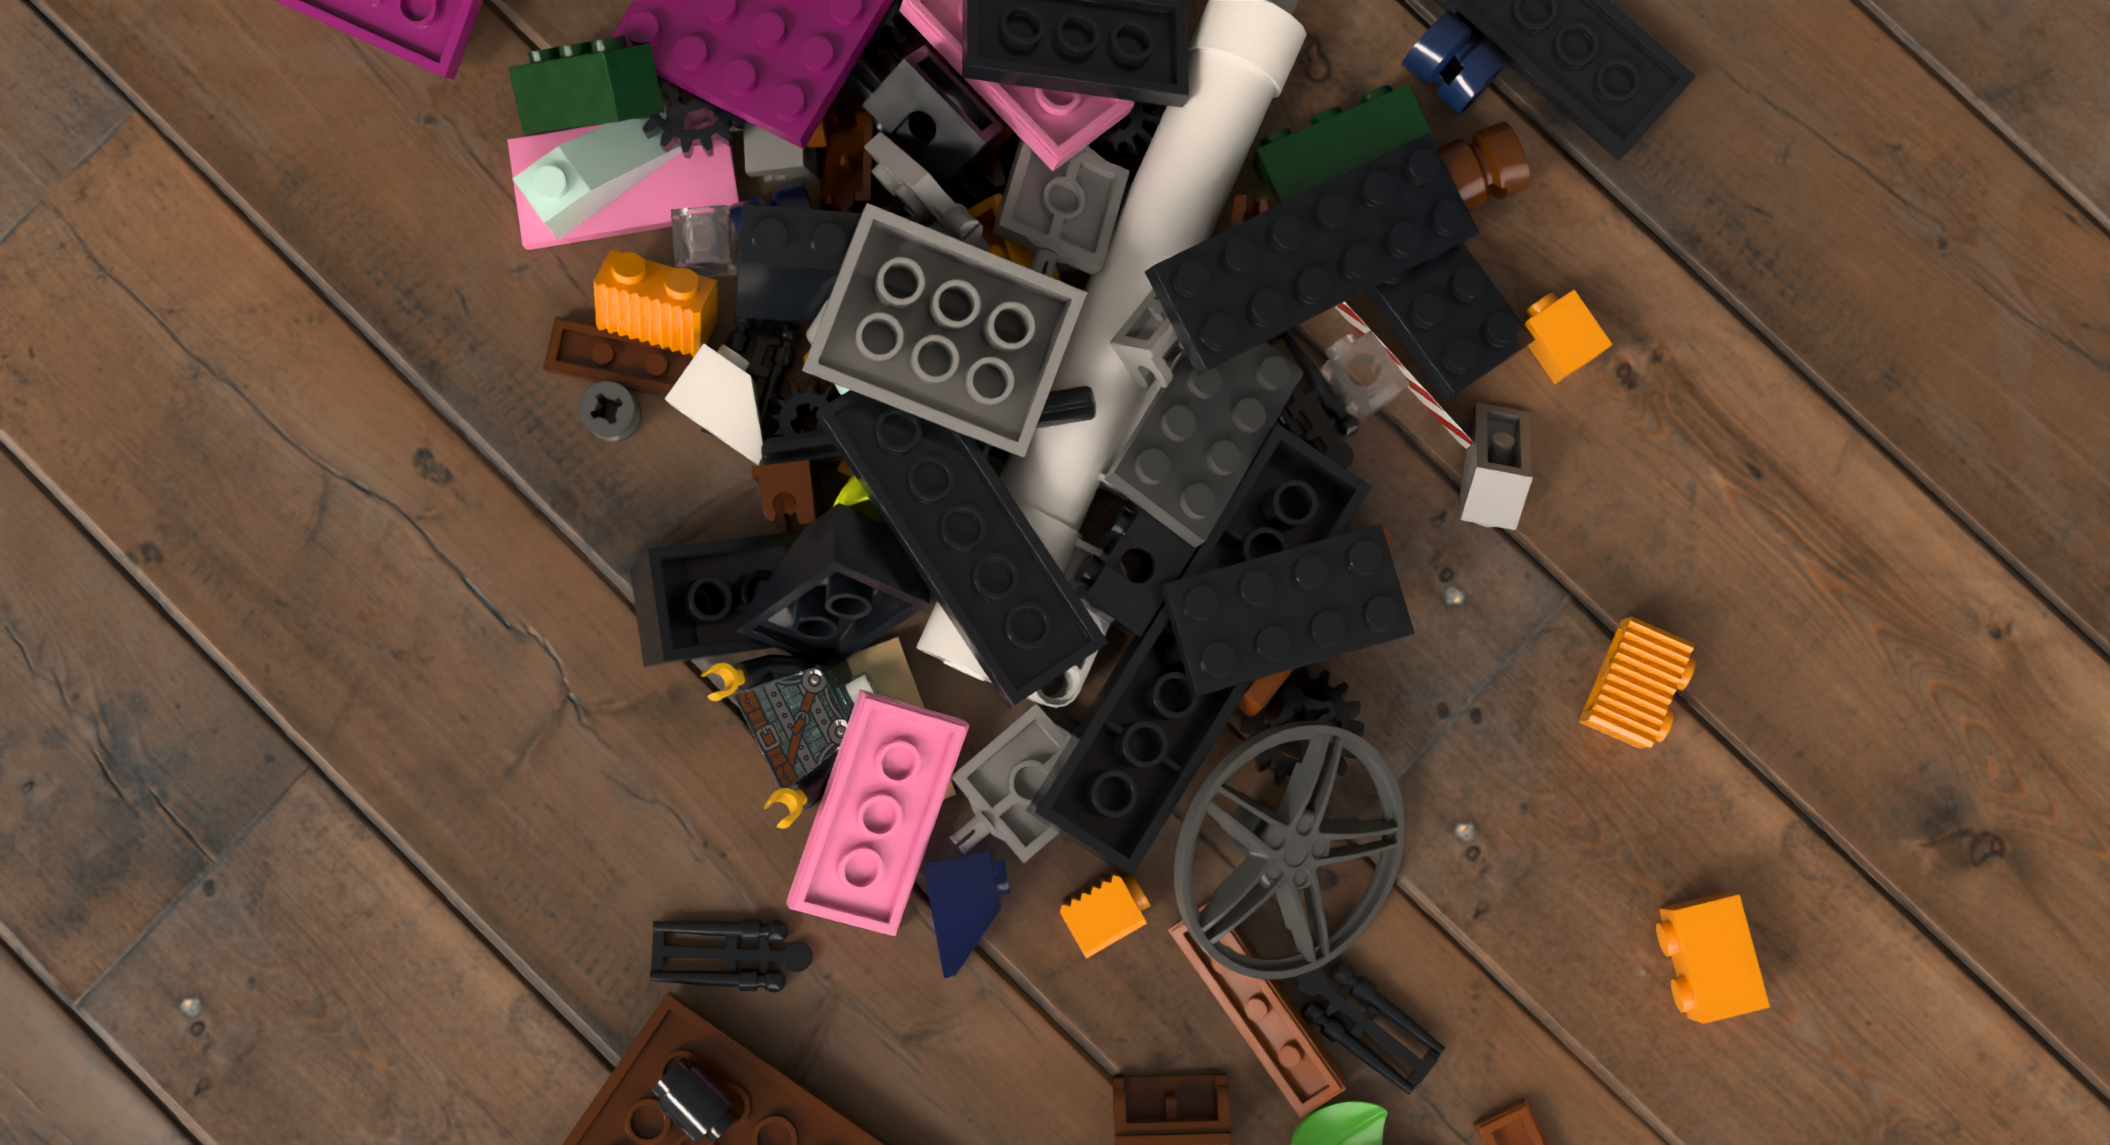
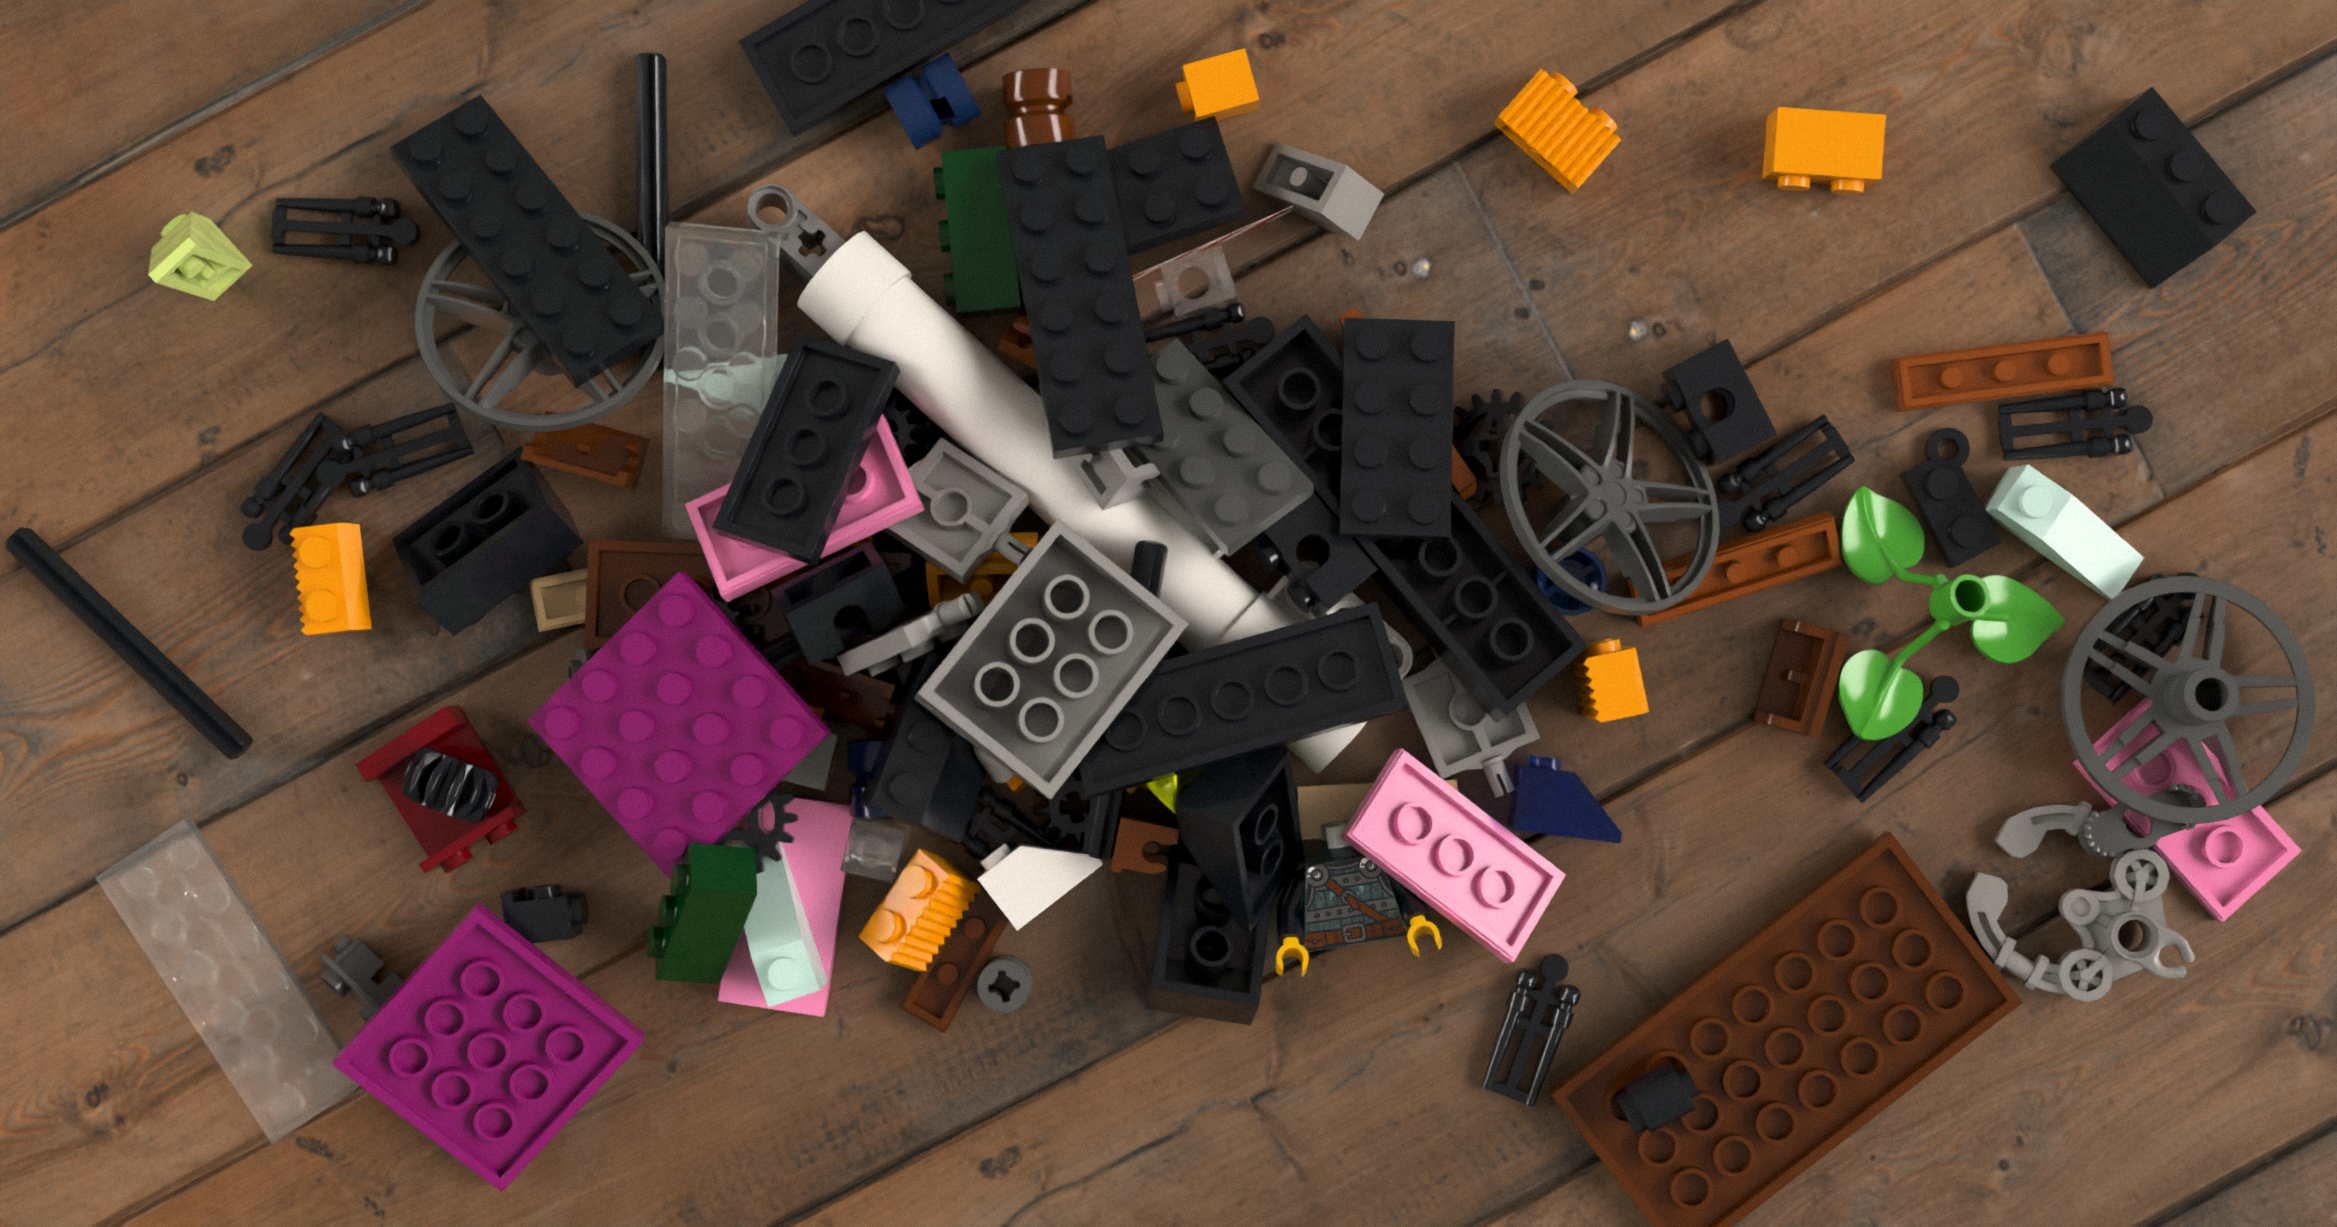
camera: 75 degrees left, 5 degrees up
(1210, 847) = (1581, 565): none -> dark blue wheel
(1451, 922) = (1744, 417): none -> black brick

